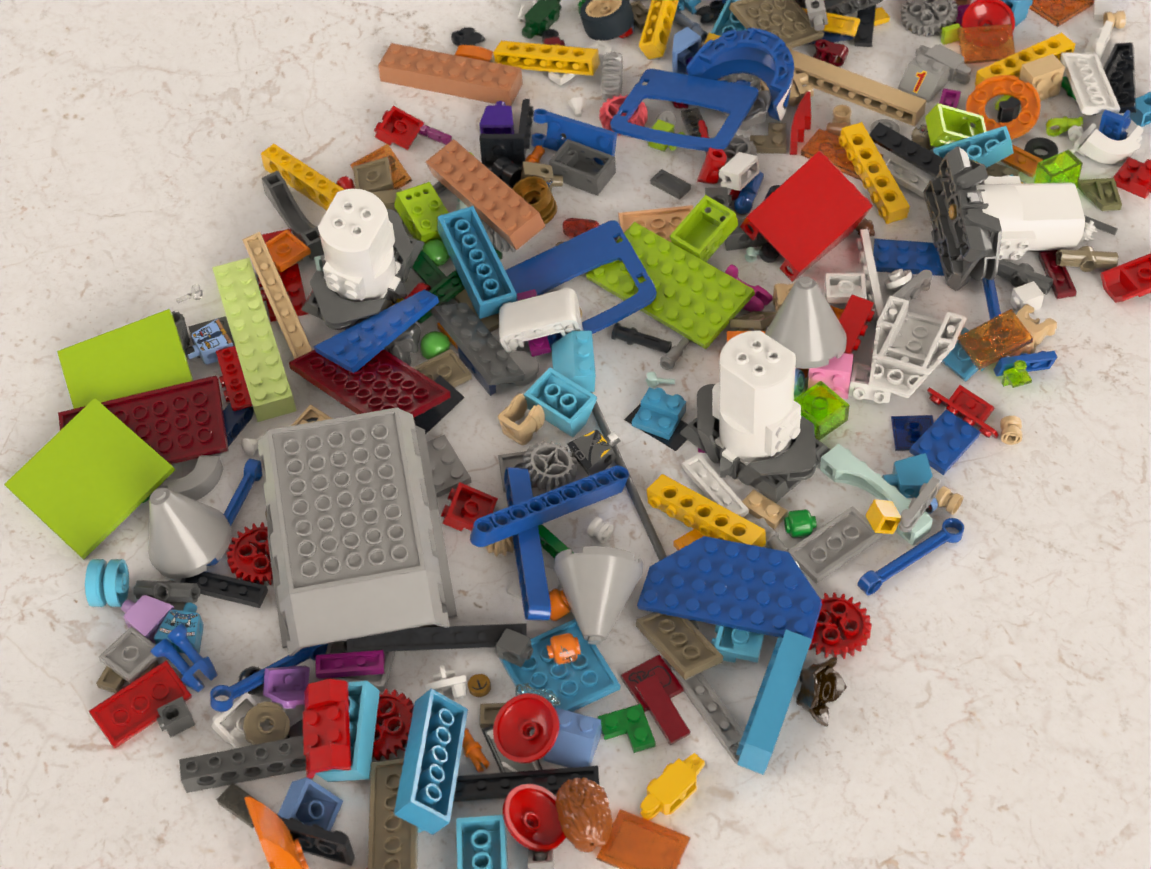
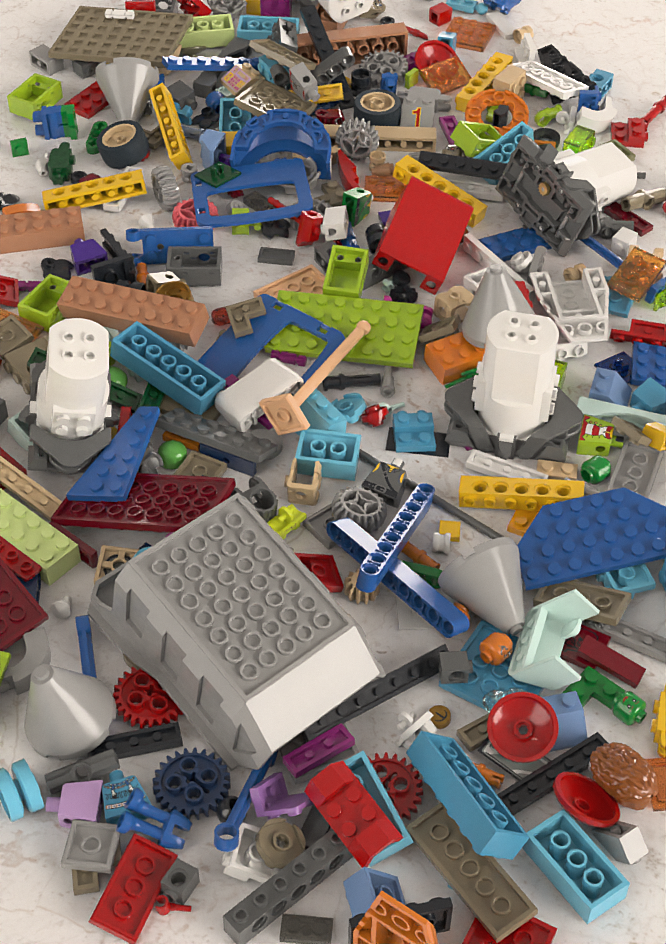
camera: 35 degrees left, 5 degrees down
(157, 732) = (167, 907): none -> red hand
(259, 633) = (191, 783): none -> dark blue gear
(295, 390) = (87, 553): none -> dark red tile
(414, 156) = (41, 303): none -> lime piece
(464, 126) = (59, 268): none -> black plate
(467, 439) = (266, 502): none -> dark grey piece
(479, 449) = (287, 520): none -> neon yellow hips
(538, 347) = (285, 409): none -> light nougat piece
(571, 534) = (419, 556): none -> orange pin
(581, 231) = (241, 313): none -> dark tan plate
(604, 293) = (289, 358): none -> magenta axle
(610, 663) = (542, 640): none -> light aqua windscreen
(614, 365) = (351, 406): none -> medium azure plate
(620, 521) = (450, 527): none -> yellow tile
(634, 381) = (374, 415): none -> red plate
(642, 759) = (629, 708): none -> green head
(652, 62) = (187, 169): none -> light grey wheel
(668, 78) = (217, 174): none -> dark green piece
(691, 156) = (275, 227): none -> black plate
(763, 275) = (410, 294): none -> black gear
(781, 158) = (357, 204): none -> green torso
(826, 492) = (597, 437): none -> lime torso
(832, 85) = (347, 136): none -> light grey gear
(858, 499) = (631, 430): none -> dark tan plate
(877, 449) = (610, 387): none -> medium blue slope
(883, 59) = (378, 107): none -> black wheel
(891, 22) = (360, 81): none -> black wheel
(916, 34) = (389, 82): none -> blue hips
(941, 311) = (574, 273): none -> tan wheel

